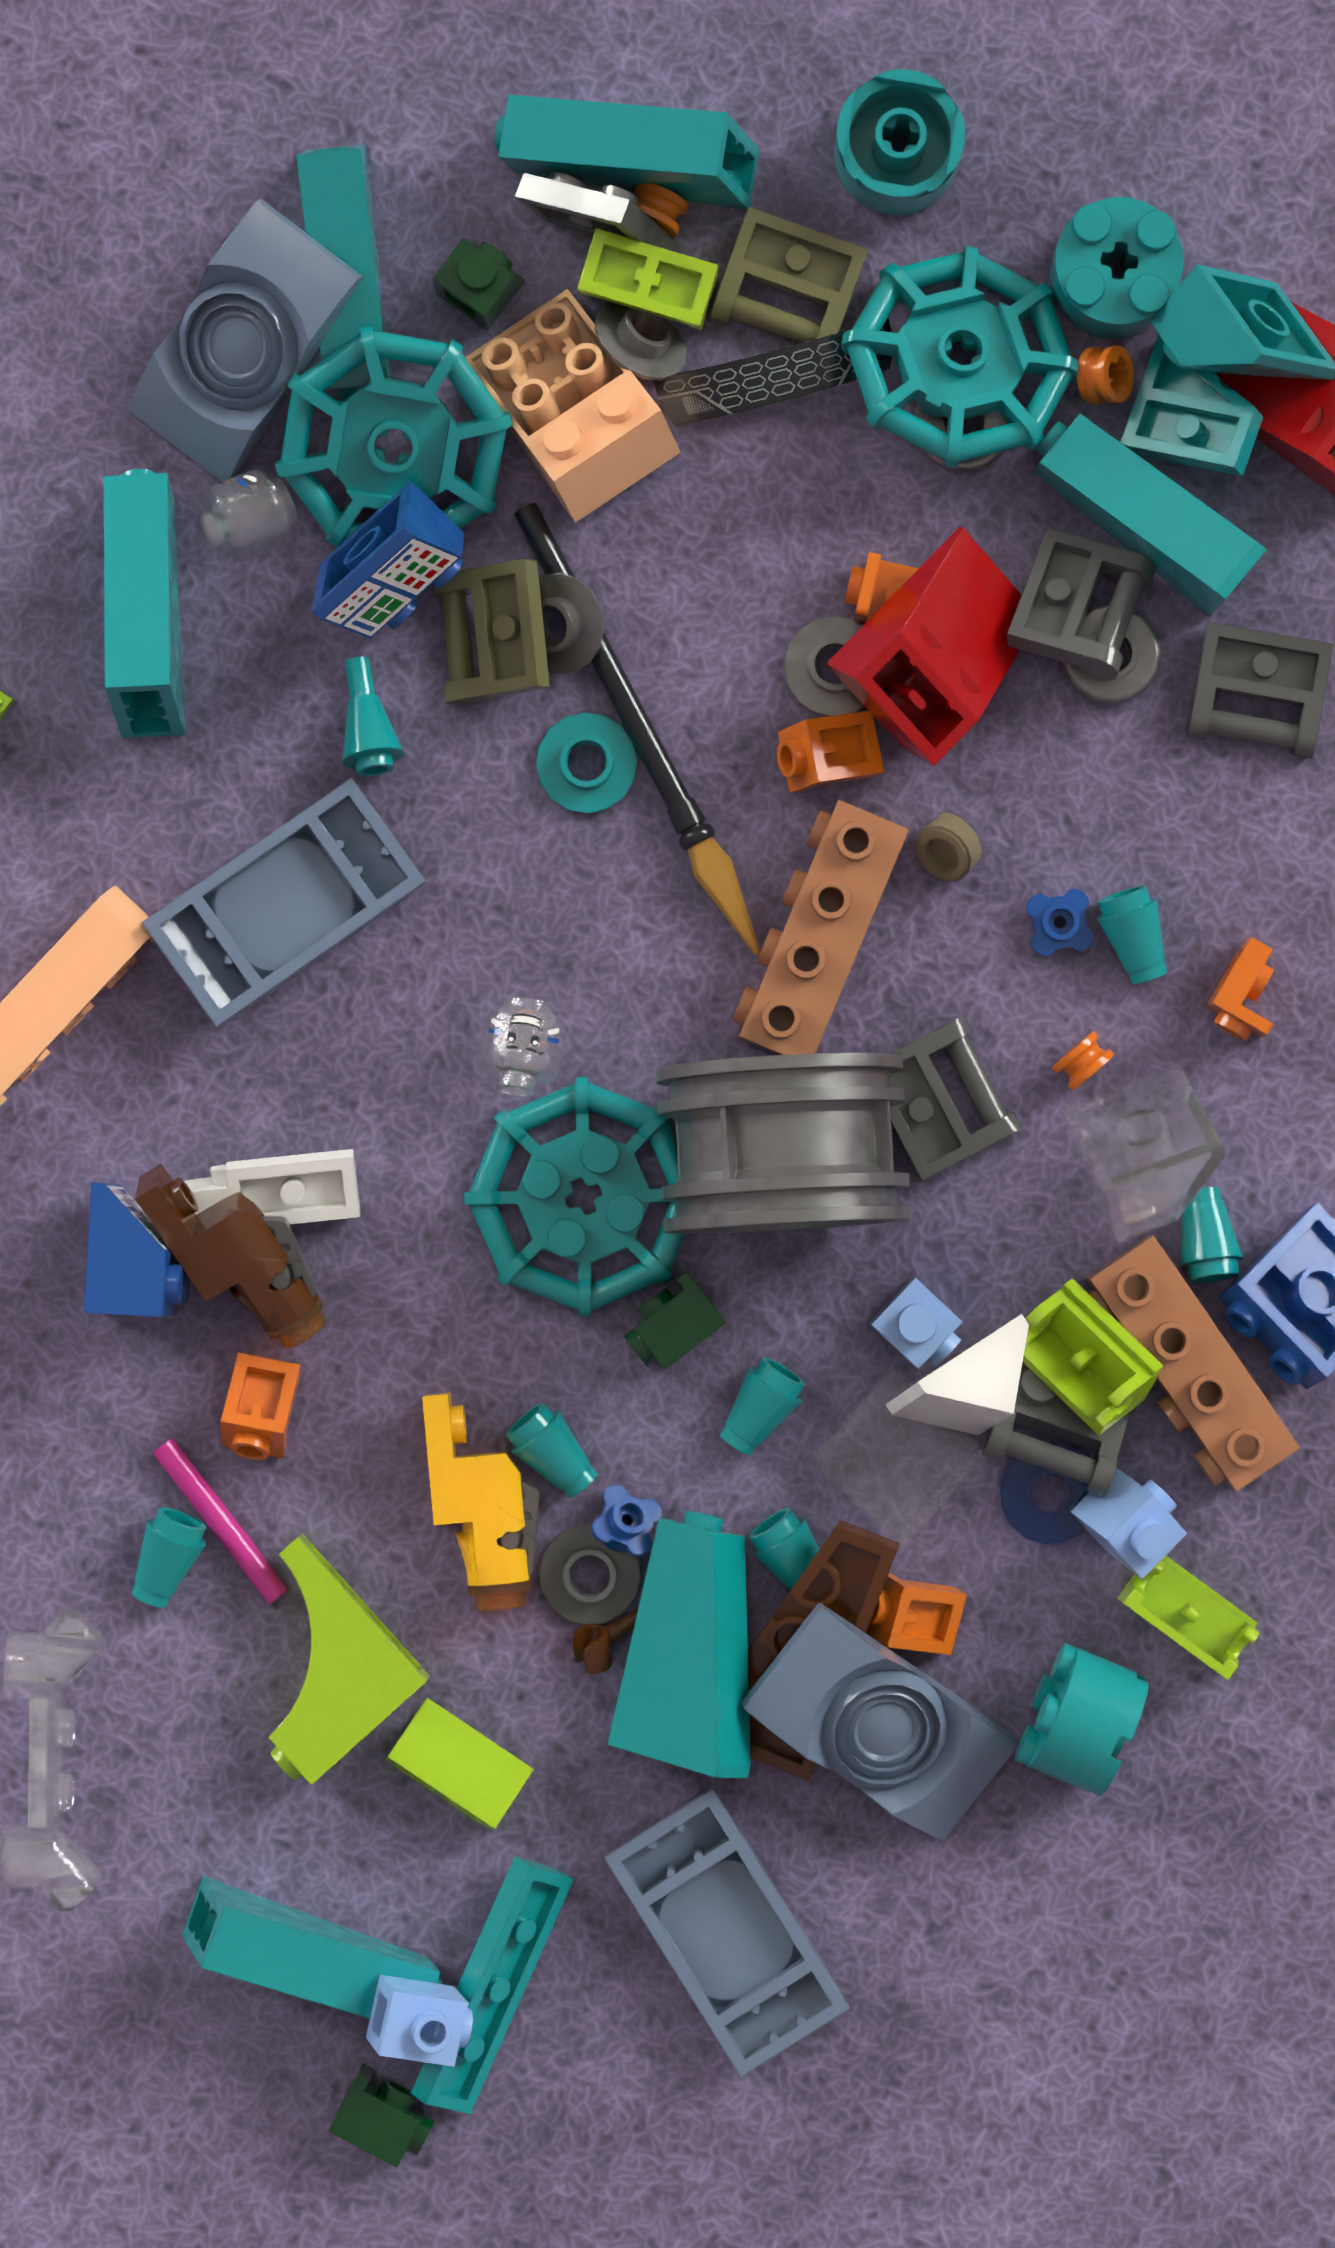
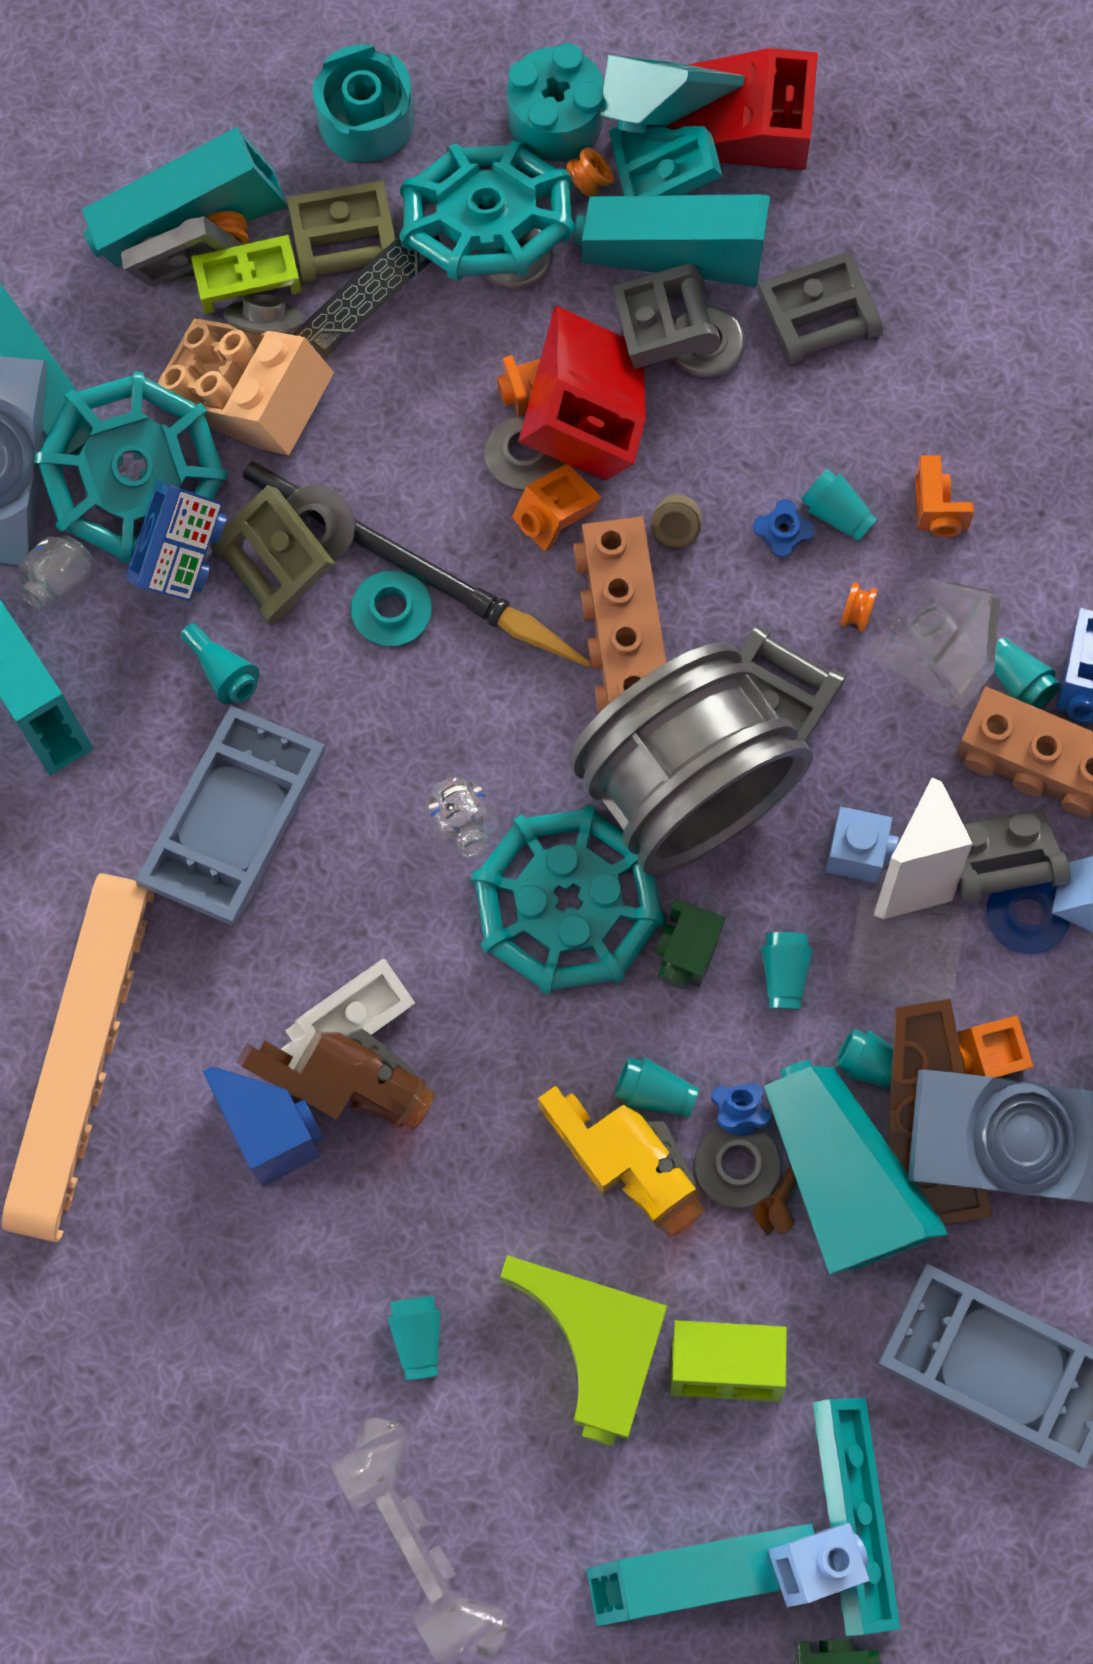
camera: 30 degrees left, 15 degrees down
(220, 1521) = (441, 1287): dark pink bar -> none
(259, 1406) = (422, 1184): orange bracket -> none
(477, 282) = (129, 331): dark green brick -> none
(1088, 1357) = (998, 793): lime hinge -> none

